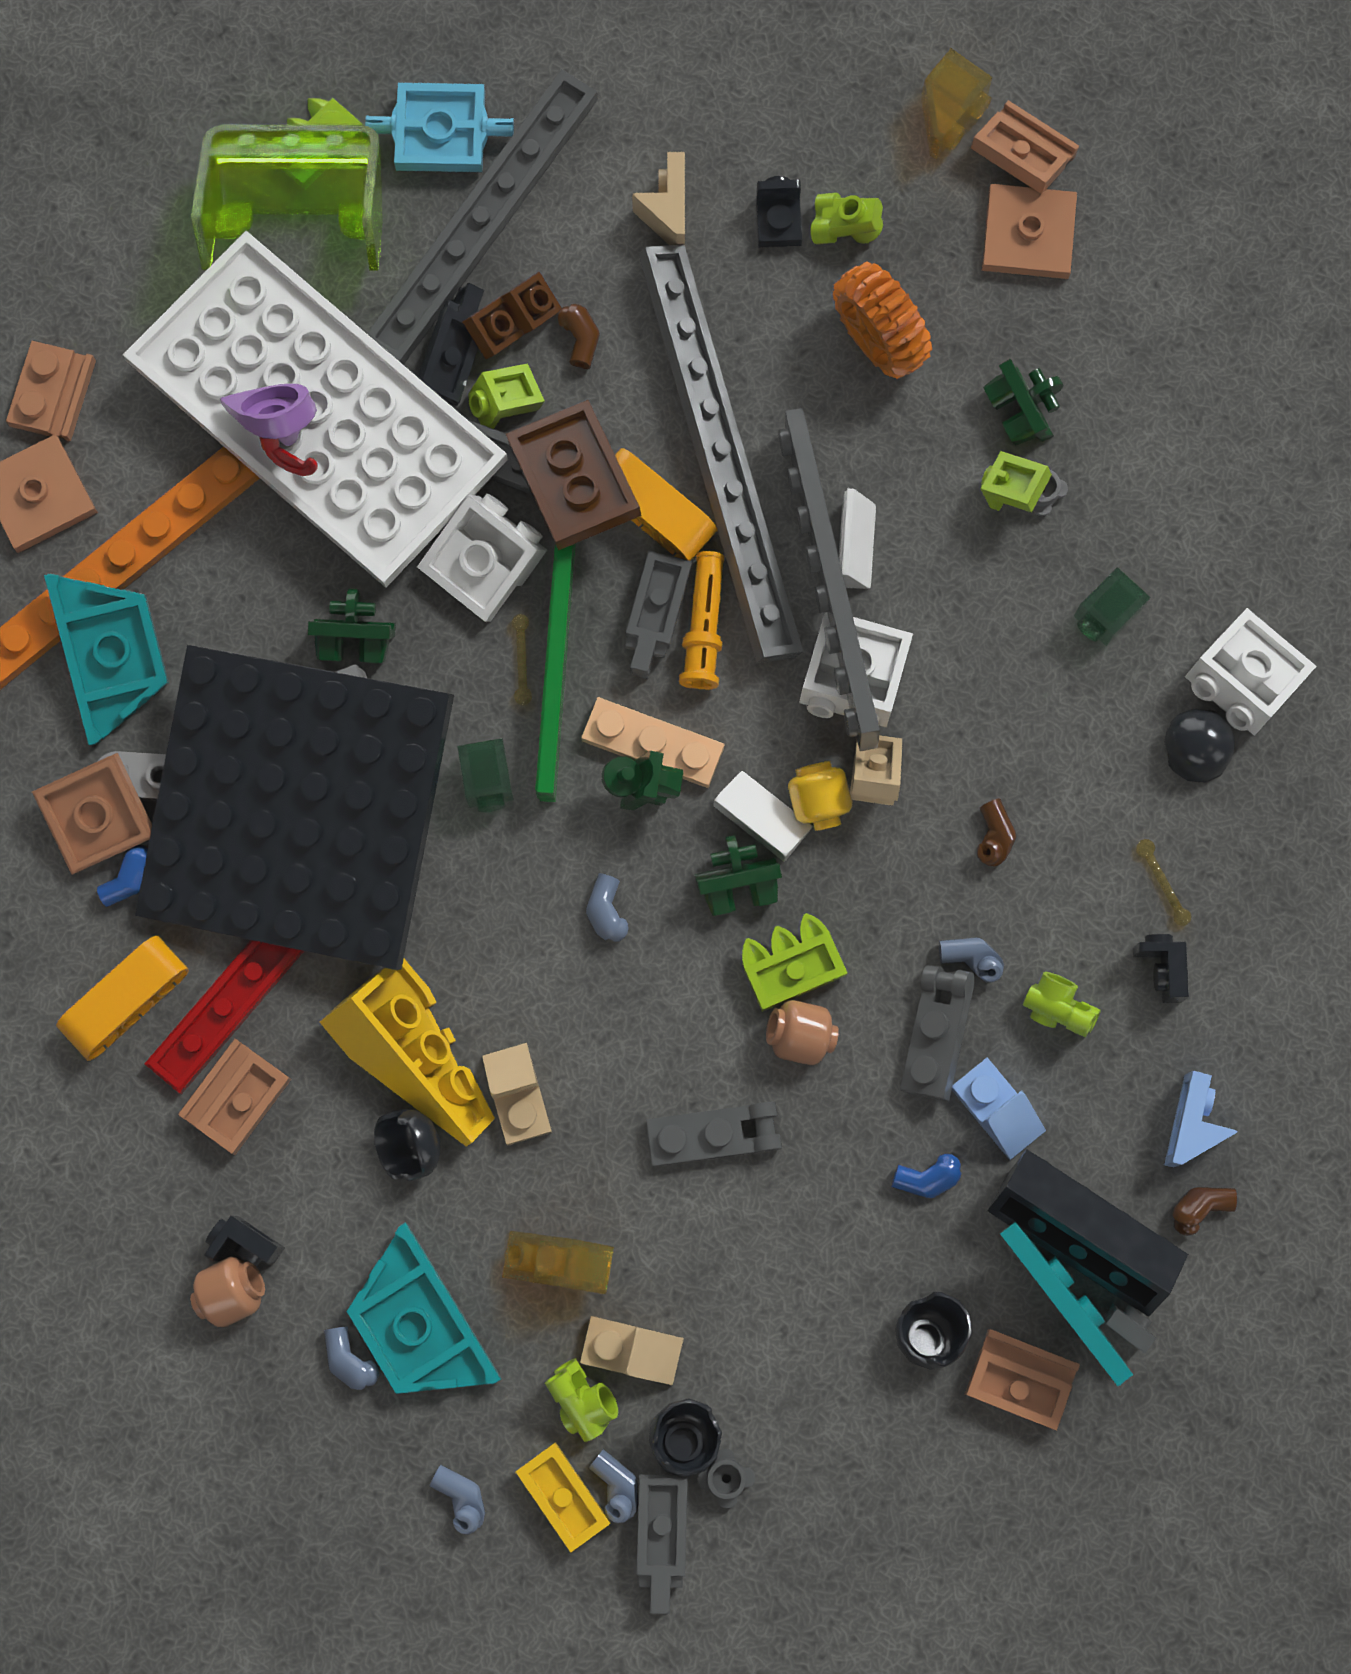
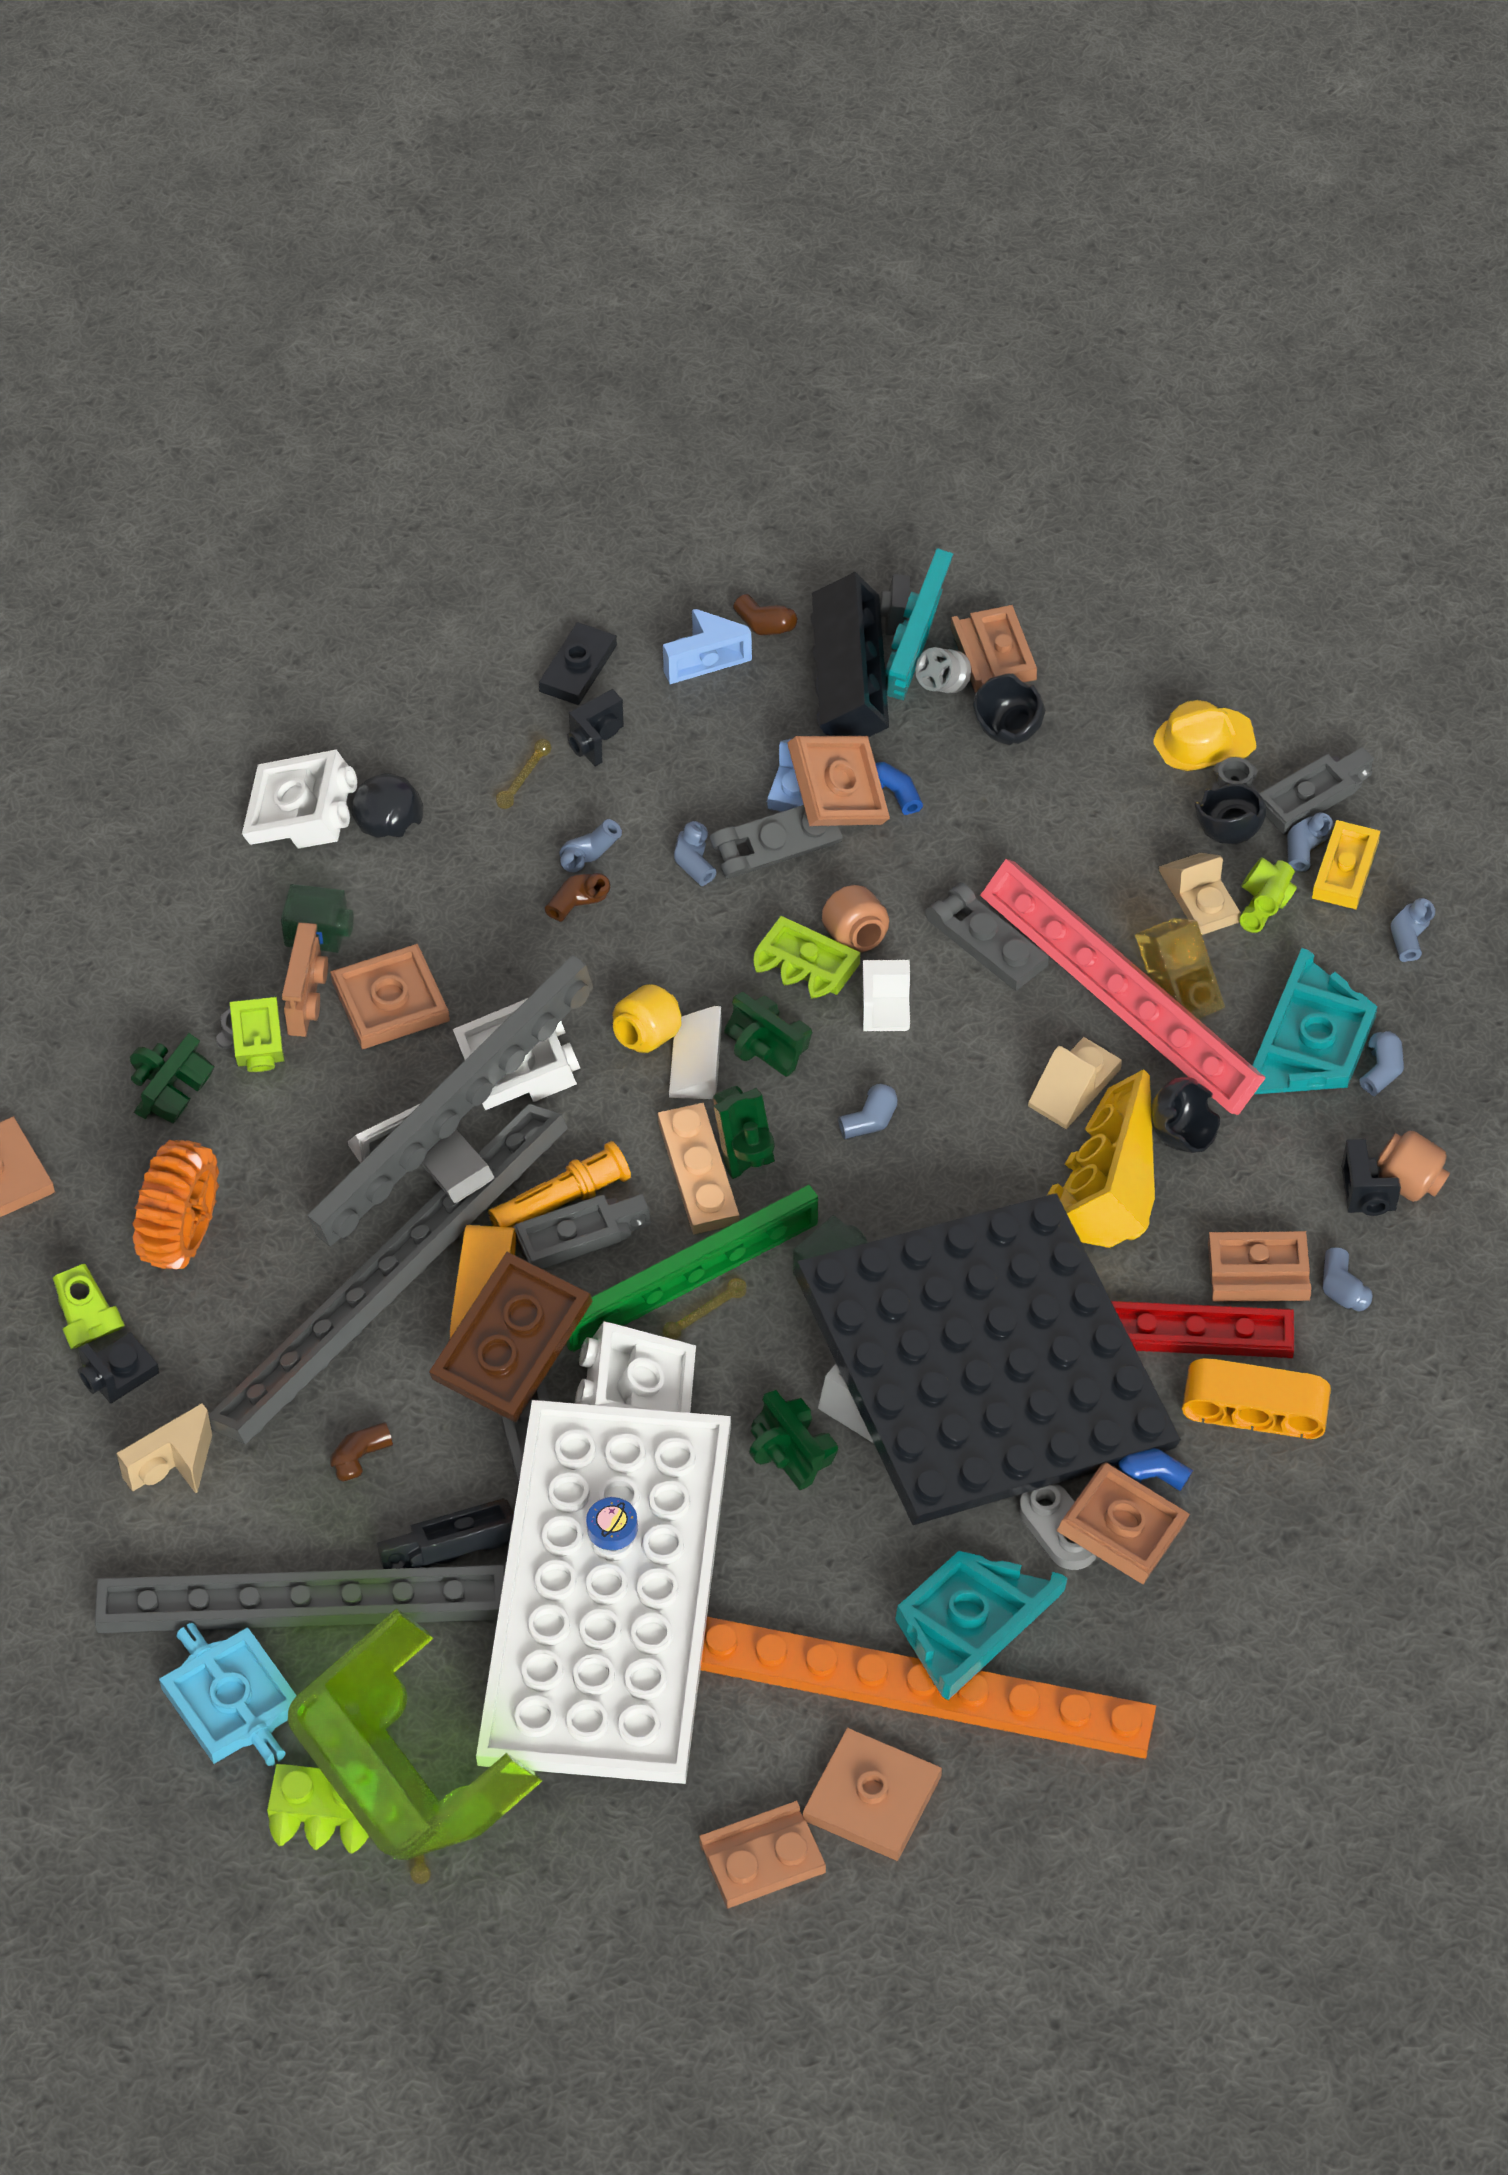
camera: 125 degrees left, 25 degrees down
(174, 1147) = (1341, 1285): none -> sand blue arm
(276, 416) = (647, 1585): medium lavender piece -> none
(351, 432) = (612, 1523): none -> blue tile
(504, 394) = (469, 1464): lime bracket -> none
(512, 315) = (374, 1508): reddish brown slope -> none
(572, 1194) = (1123, 987): none -> coral plate
(706, 1000) = (886, 995): none -> white panel
(772, 550) = (457, 1167): none -> light grey tile
(794, 1495) = (1203, 735): none -> yellow piece
(877, 772) = (608, 976): tan slope -> none
(948, 1114) = (838, 780): none -> nougat plate
(991, 618) = (390, 996): none -> nougat plate
(1020, 1308) = (934, 663): none -> light grey wheel
(1035, 542) = (304, 974): none -> nougat plate
(1040, 877) = (589, 847): none -> sand blue arm
(1054, 1003) = (684, 773): lime plate -> none
(1258, 1009) = (577, 663): none -> black plate

